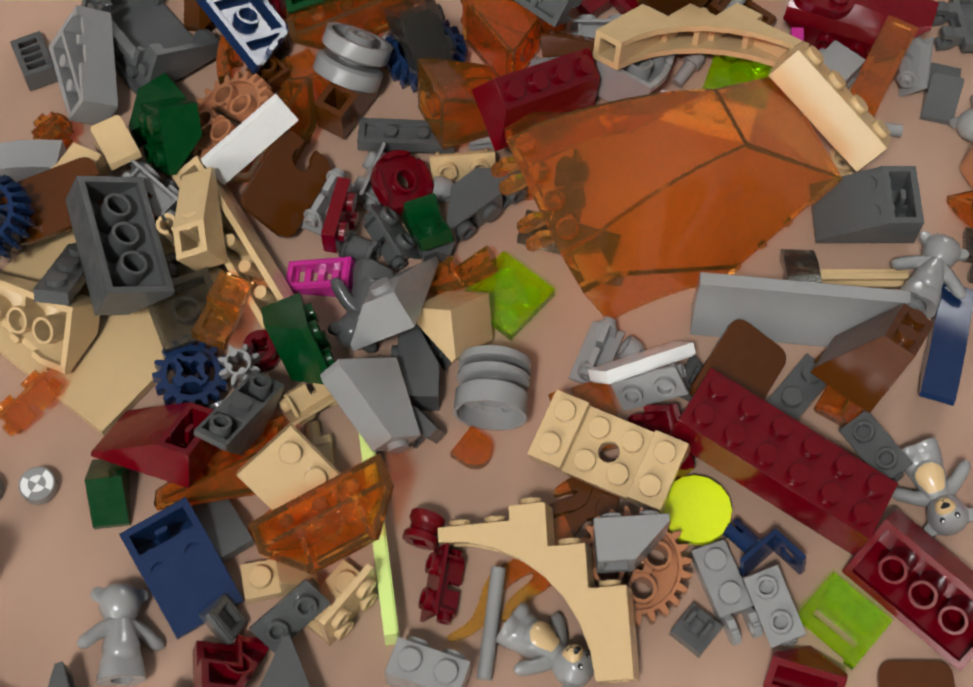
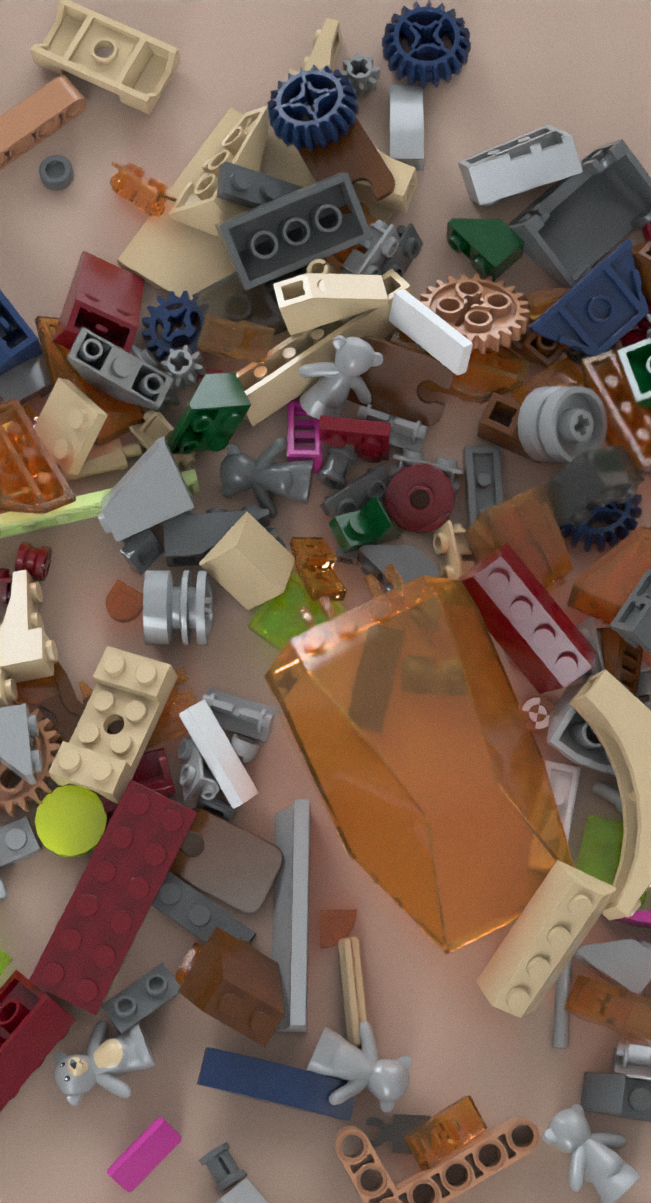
camera: 90 degrees right, 10 degrees up
(38, 76) = (515, 114): dark grey slope -> none
(38, 485) = (62, 216): light grey tile -> none
(53, 127) = (445, 157): clear orange gear -> none
(108, 494) = (51, 276): dark green slope -> none
(114, 142) = (427, 210): tan slope -> none
(171, 132) = (442, 255): dark green slope -> none
(280, 228) = (336, 378): none -> light grey piece
(393, 304) = (252, 498): light grey wedge -> none
(442, 188) = (422, 539): light grey hinge -> none
(758, 549) = (29, 881): dark blue bracket -> none
(800, 265) = (347, 922): clear smoke slope -> none
(871, 208) = (439, 999): dark grey slope -> none

